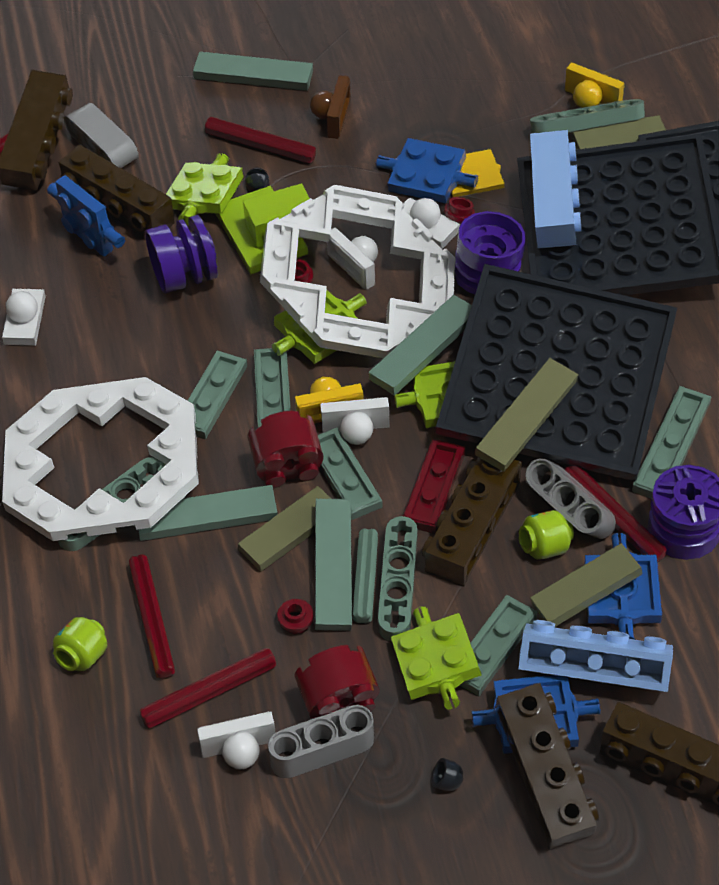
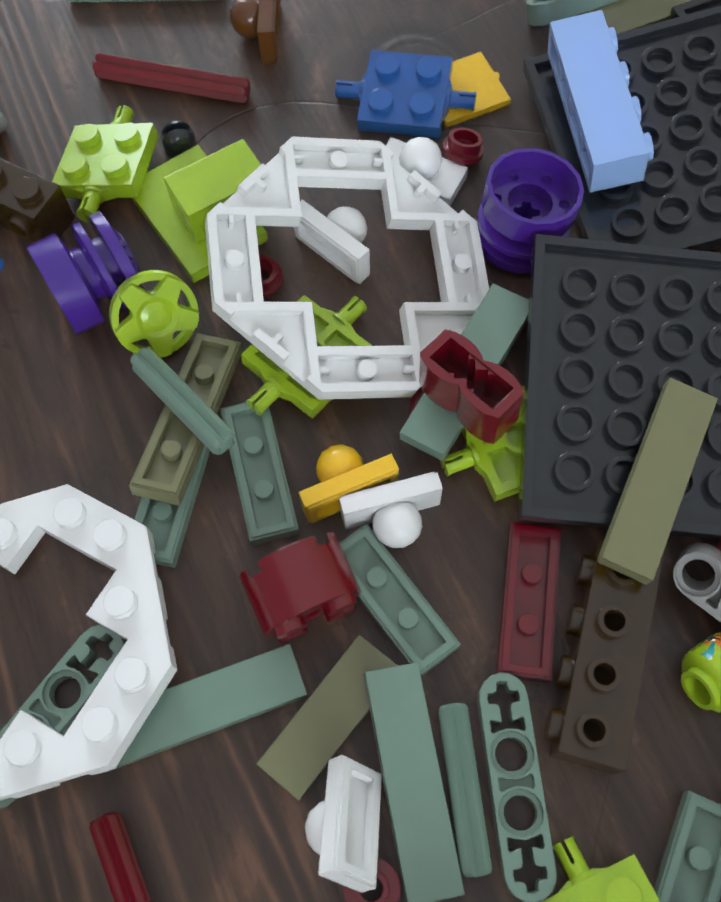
camera: 10 degrees left, 15 degrees up
(220, 285) = (154, 313): none -> lime wheel
(230, 335) = (183, 401): none -> sand green axle
(231, 349) = (173, 447): none -> olive tile
(288, 574) = (347, 825): none -> white tile
(416, 344) = (478, 391): none -> dark red brick

